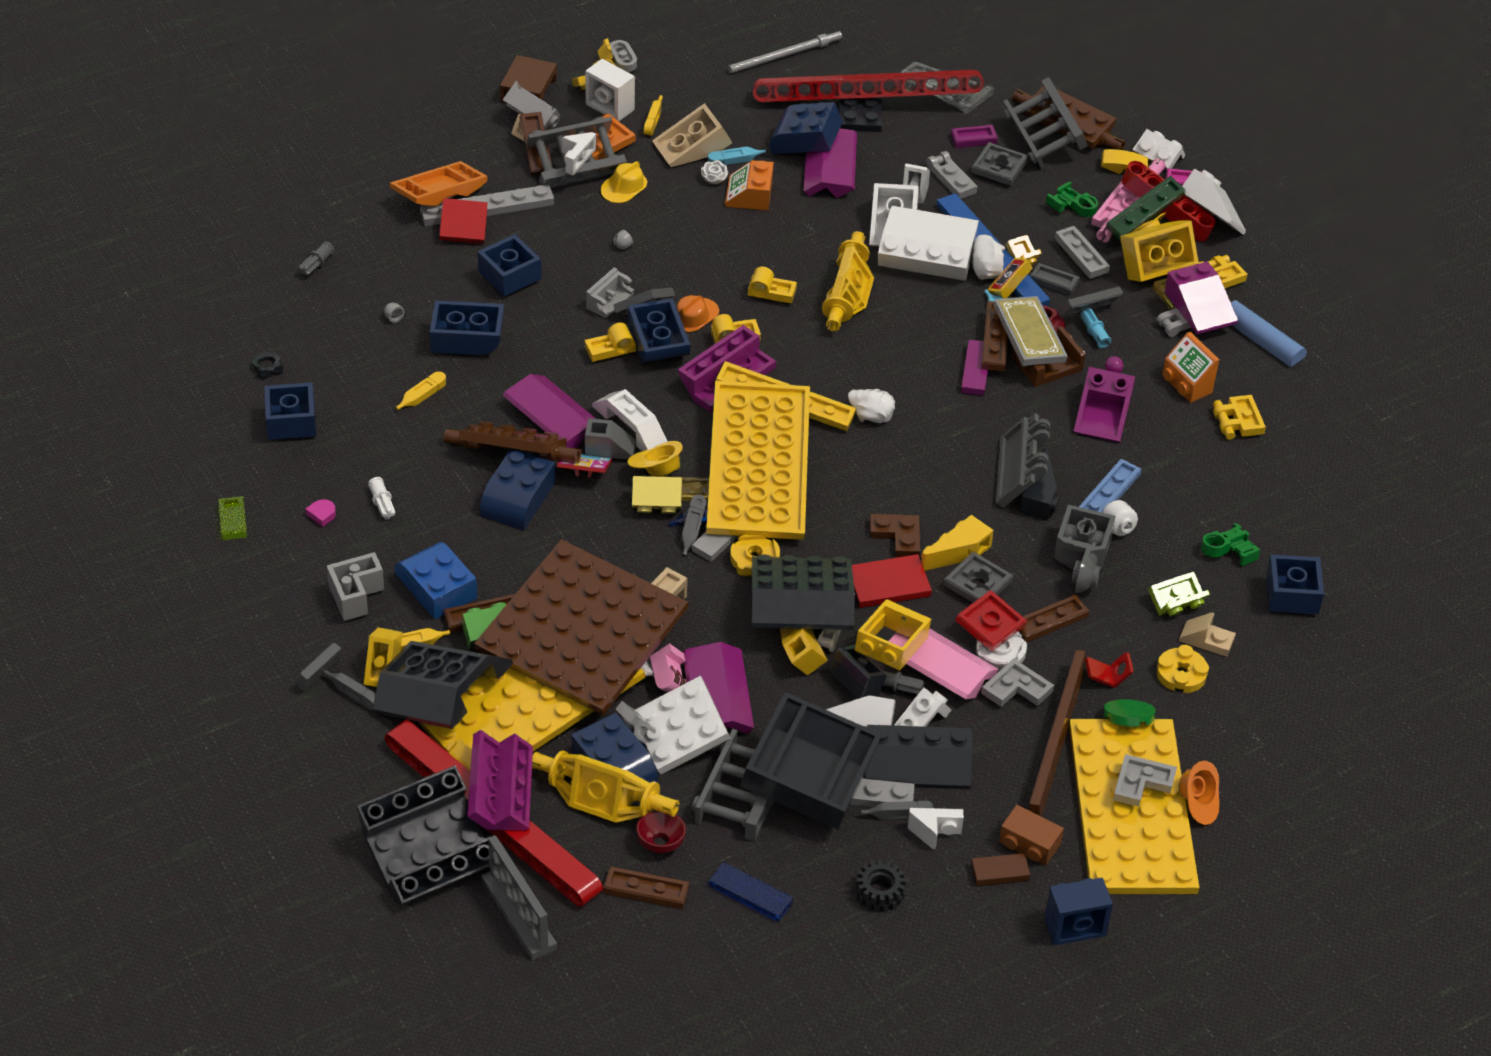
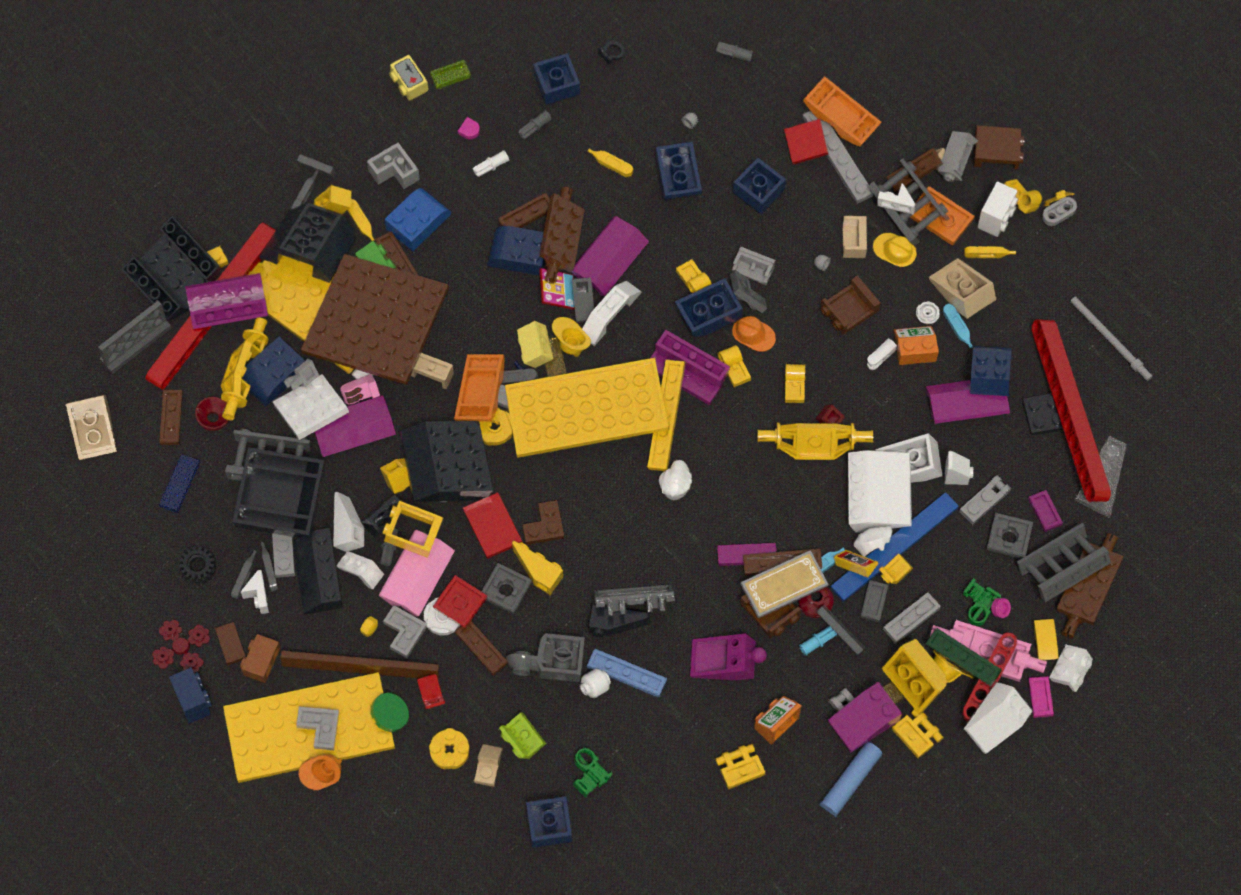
camera: 80 degrees right, 20 degrees up
(223, 553) = (408, 77): none -> brick
(343, 447) = (534, 125): none -> dark grey axle
(464, 479) = (526, 213): none -> reddish brown tile
(600, 207) = (854, 237): none -> tan panel
(637, 975) = (91, 426): none -> tan slope
(685, 227) = (850, 306): none -> reddish brown panel
(703, 553) = (480, 387): none -> orange slope
(754, 216) = (881, 354): none -> white bar
(819, 272) = (830, 415): none -> dark red slope
(907, 839) = (243, 576): none -> dark grey piece
(993, 925) = (180, 646): none -> dark red plant
(1005, 717) = (369, 626): none -> yellow tile
(1083, 184) = (1001, 607): none -> dark pink tile

